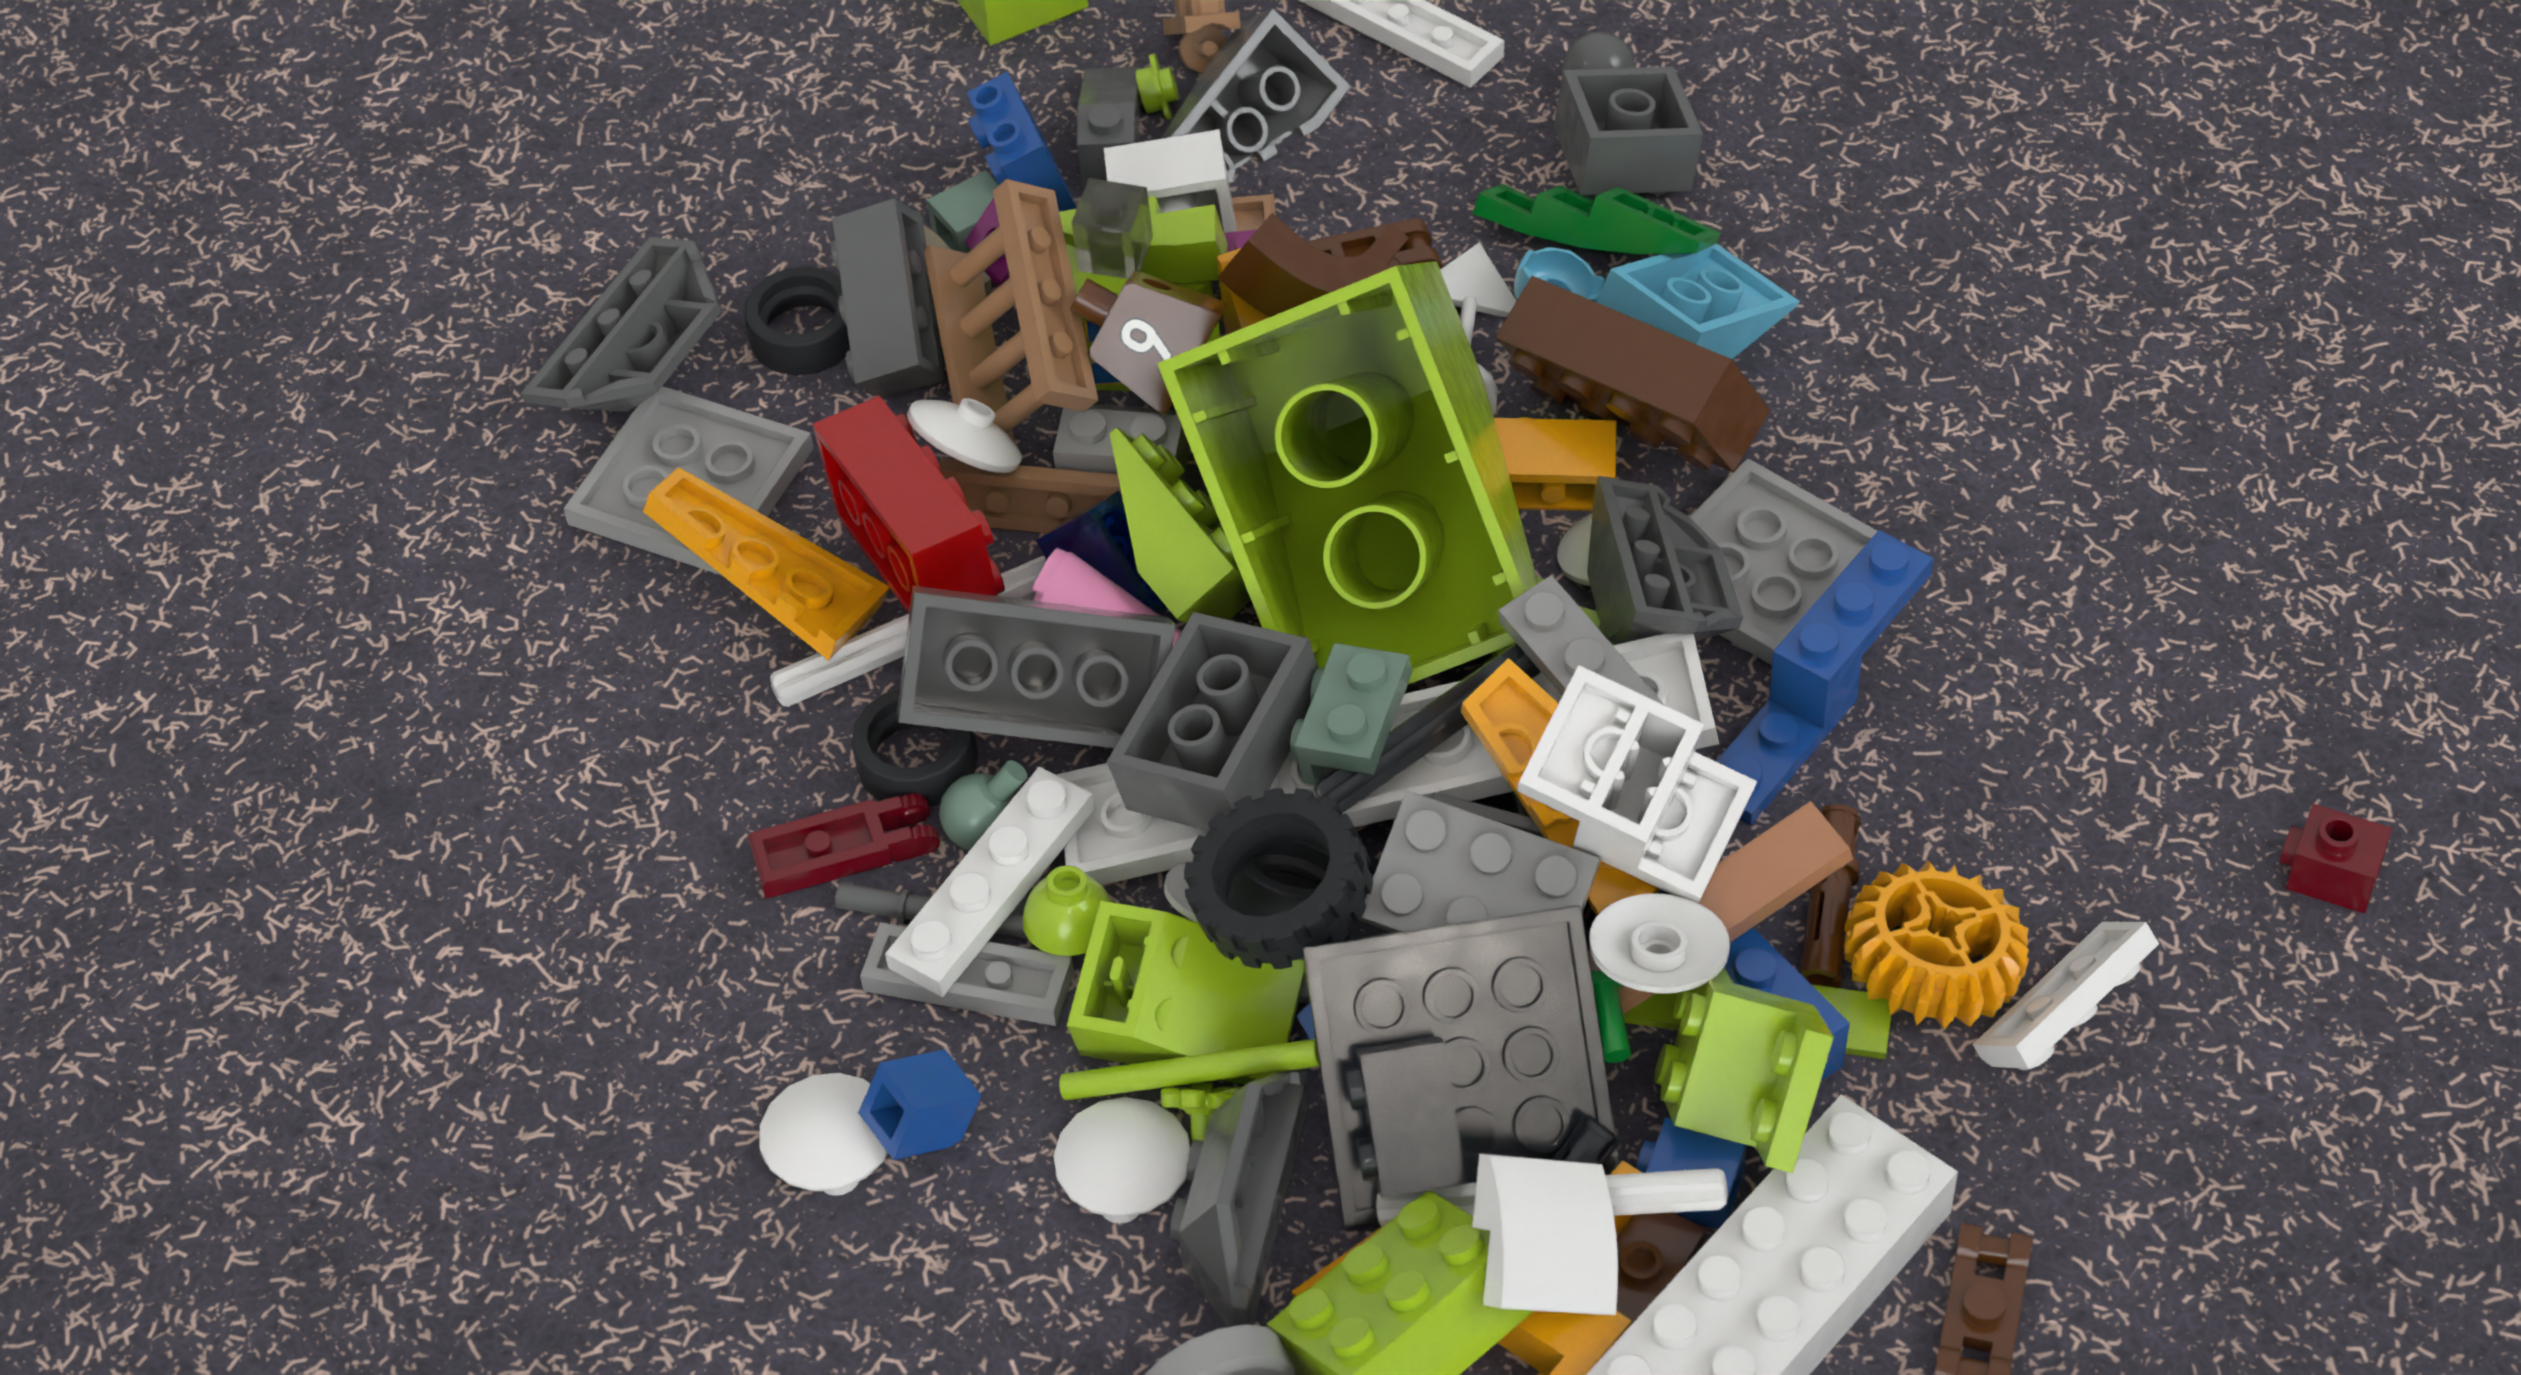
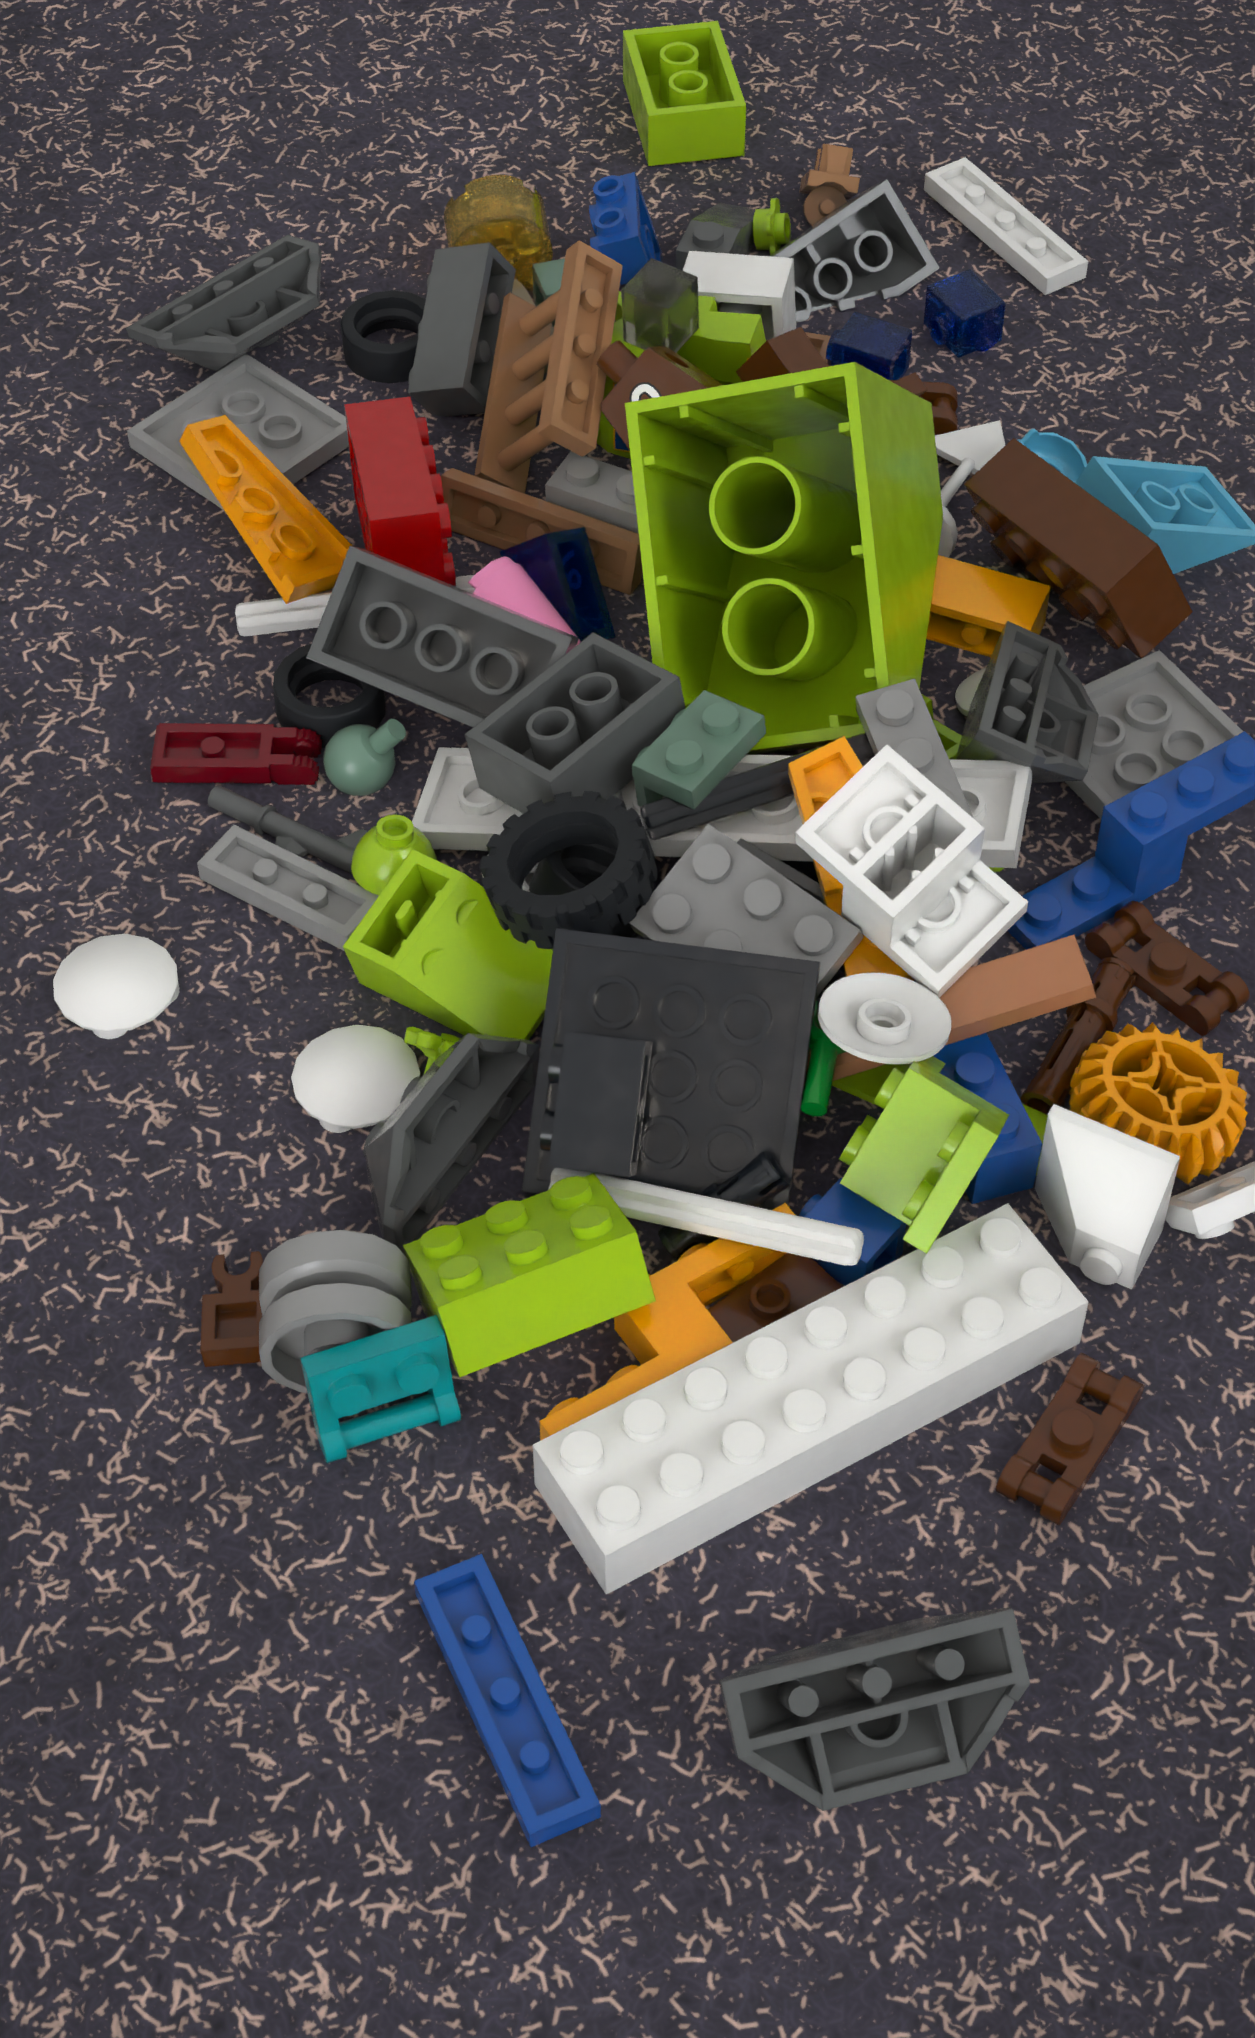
camera: 15 degrees right, 0 degrees up
(873, 162) = (505, 215): none -> clear yellow brick
(919, 1104) = (197, 979): blue brick -> none
(965, 433) = (475, 449): white dish -> none
(990, 881) = (337, 815): white plate -> none
(1175, 533) = (606, 564): lime slope -> none
(1189, 1070) = (435, 1016): lime bar -> none
(1320, 201) = (873, 344): none -> clear blue brick
(1400, 134) = (964, 313): none -> clear blue brick
(1547, 1235) = (674, 1238): white slope -> none
(1609, 223) = (1112, 424): green slope -> none
(1624, 121) = (1163, 348): dark grey brick -> none
(1886, 797) = (1168, 969): none -> reddish brown plate
(1924, 1057) = (1103, 1195): none -> white slope

